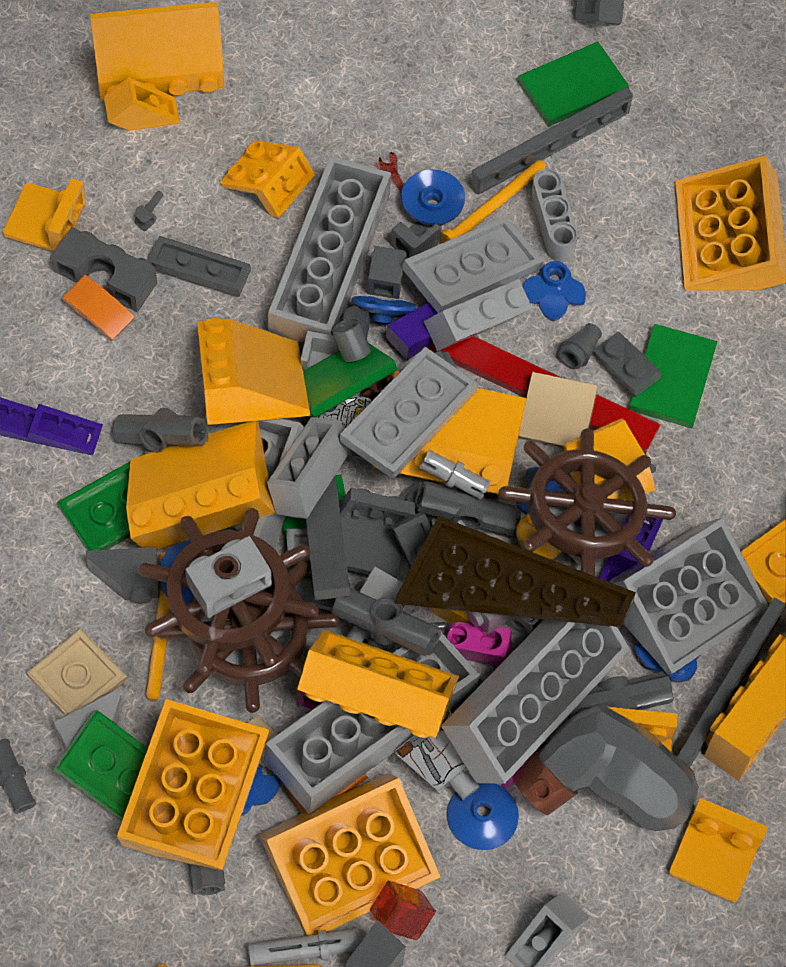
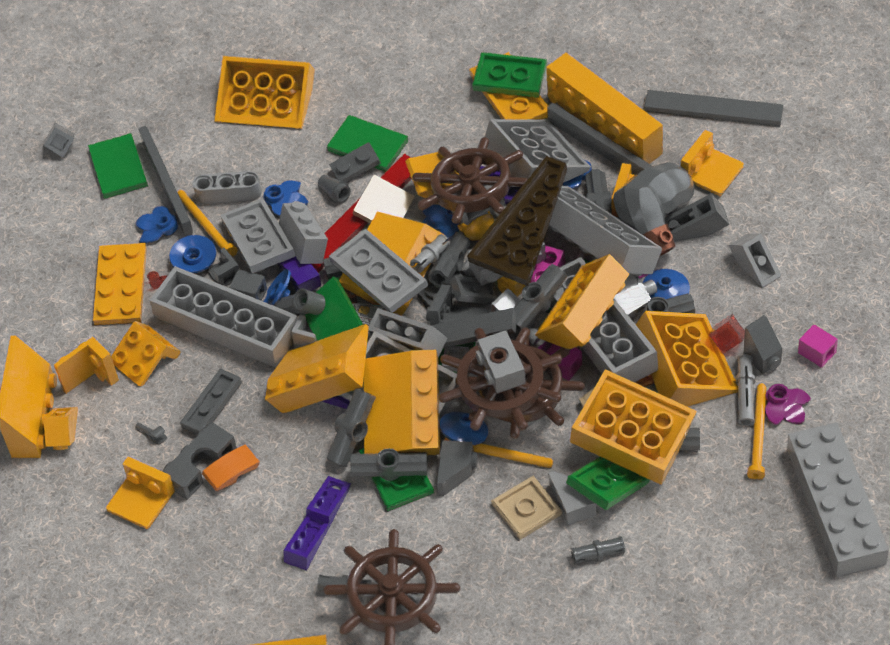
camera: 70 degrees left, 10 degrees down
(111, 471) = (376, 464): none -> dark grey piece
(229, 107) = (83, 362): none -> light orange bracket
(378, 126) = (119, 284): none -> light orange plate
(436, 824) = (678, 304): none -> dark grey piece
(480, 145) = (156, 224): none -> blue plate
(604, 839) = (697, 219): none -> dark grey slope

